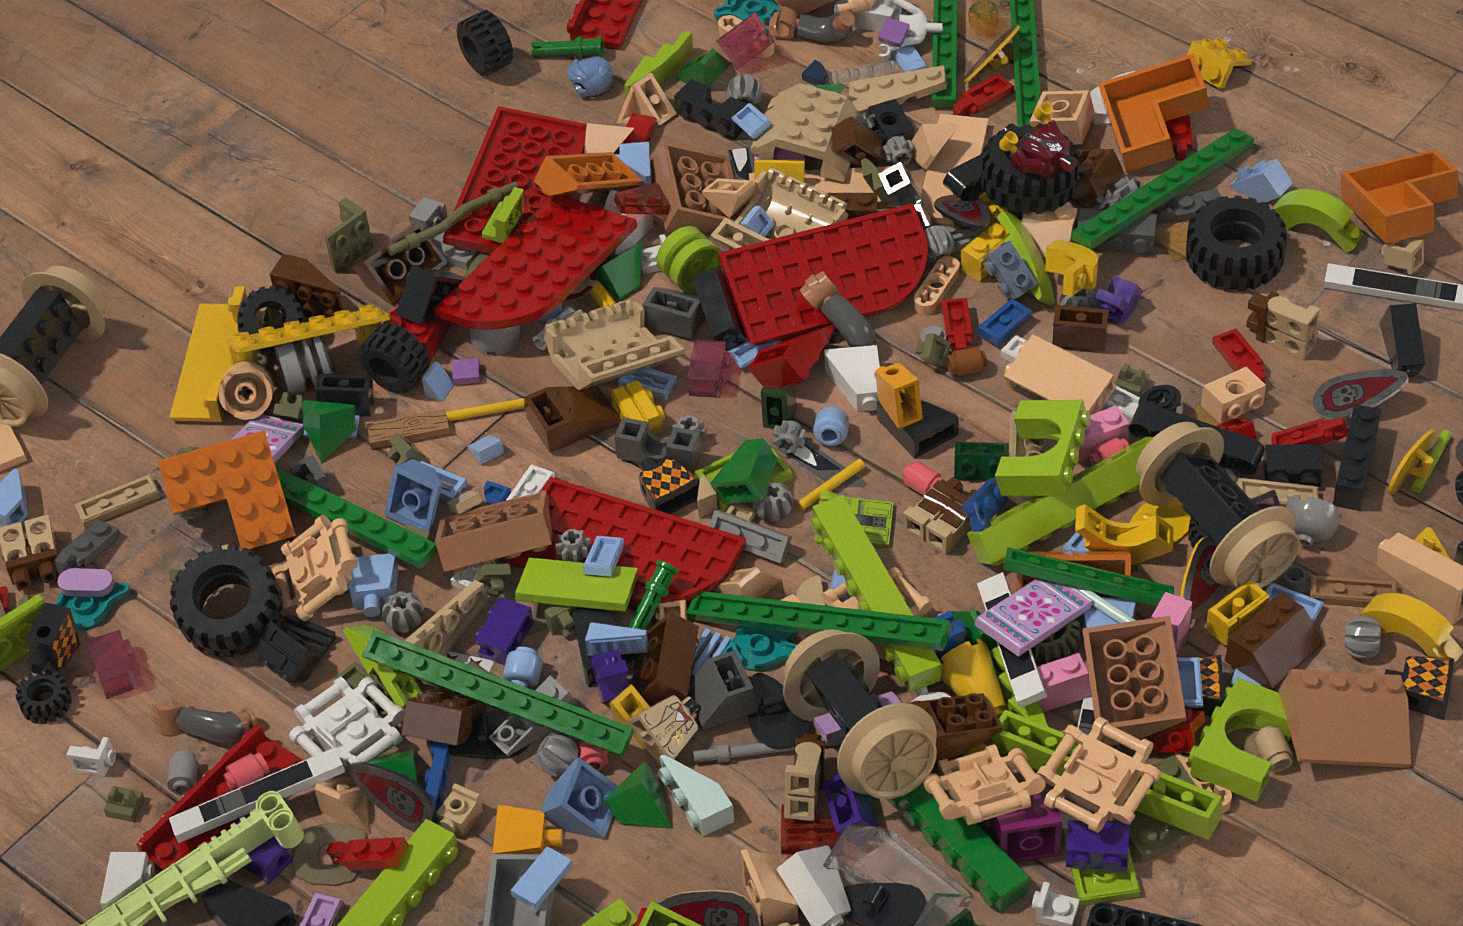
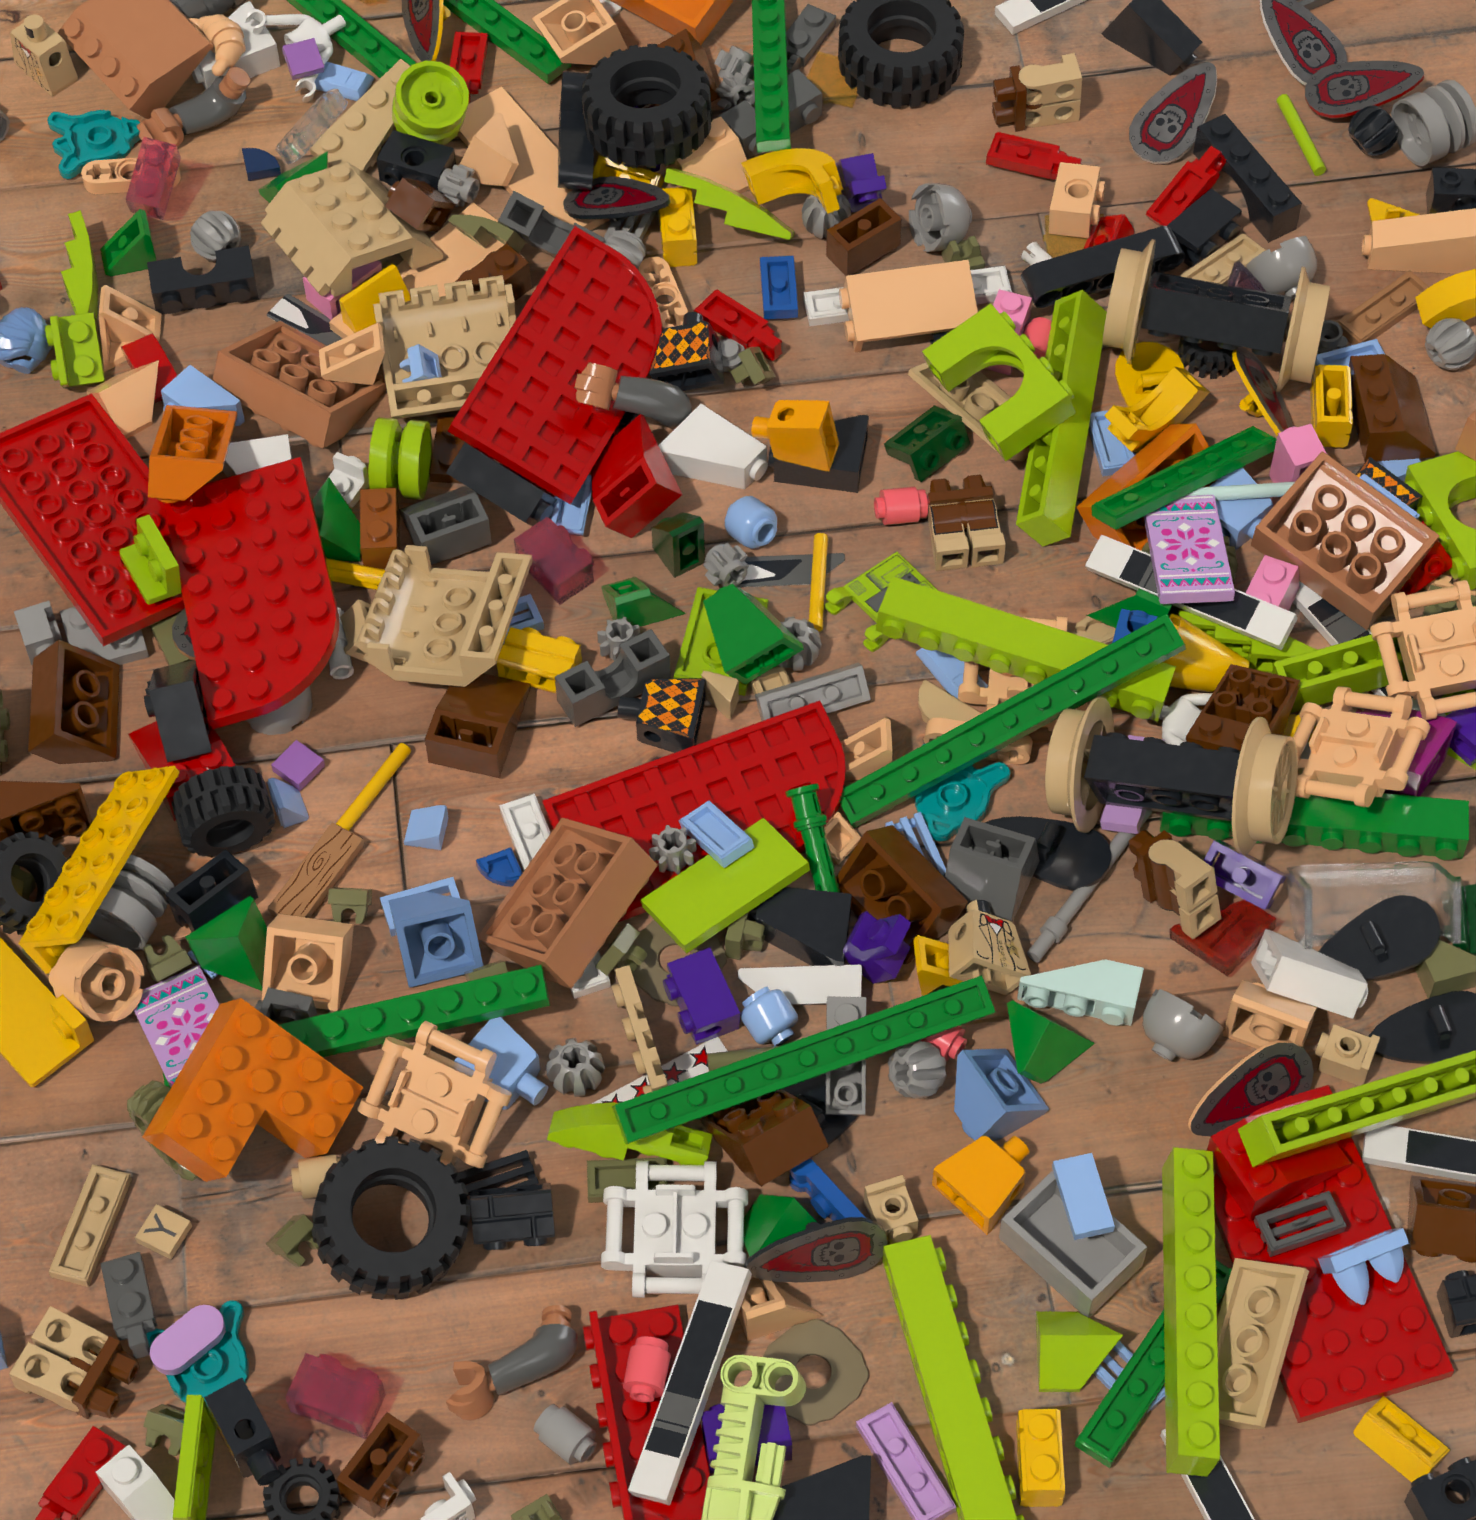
camera: 50 degrees left, 10 degrees up
(87, 708) = (381, 1465): none -> reddish brown brick
(141, 530) = (163, 1231): none -> tan tile
(351, 460) = (308, 958): none -> light nougat slope
(368, 853) = (871, 1332): red hinge -> none
(413, 240) = (80, 665): olive bar -> none
(464, 502) = (486, 900): tan tile -> none
(563, 669) = (806, 983): none -> white sticker
(605, 97) = (76, 350): none -> lime bracket
(607, 638) = (840, 909): light blue slope -> none
(640, 282) = (379, 526): none -> dark orange brick
(642, 200) = (274, 432): clear red wing -> none
(714, 851) = (1178, 1027): none -> light grey cylinder
(722, 421) = (634, 601): none -> green slope
(752, 121) = (284, 259): light blue tile -> none
(866, 120) = (391, 175): dark grey plate -> none
(904, 318) = (689, 355): none -> black torso
(926, 95) = (430, 102): none -> lime wheel
(966, 362) = (795, 355): dark orange brick -> none
(984, 504) = (1001, 481): blue plate -> none
(1009, 271) = (738, 230): sand blue bracket -> none
(1042, 149) = (667, 69): dark red torso -> none
(1142, 348) = (939, 216): none -> light grey cylinder
(1157, 393) = (1027, 241): black gear -> none
(1411, 459) = (1302, 145): yellow shield -> none

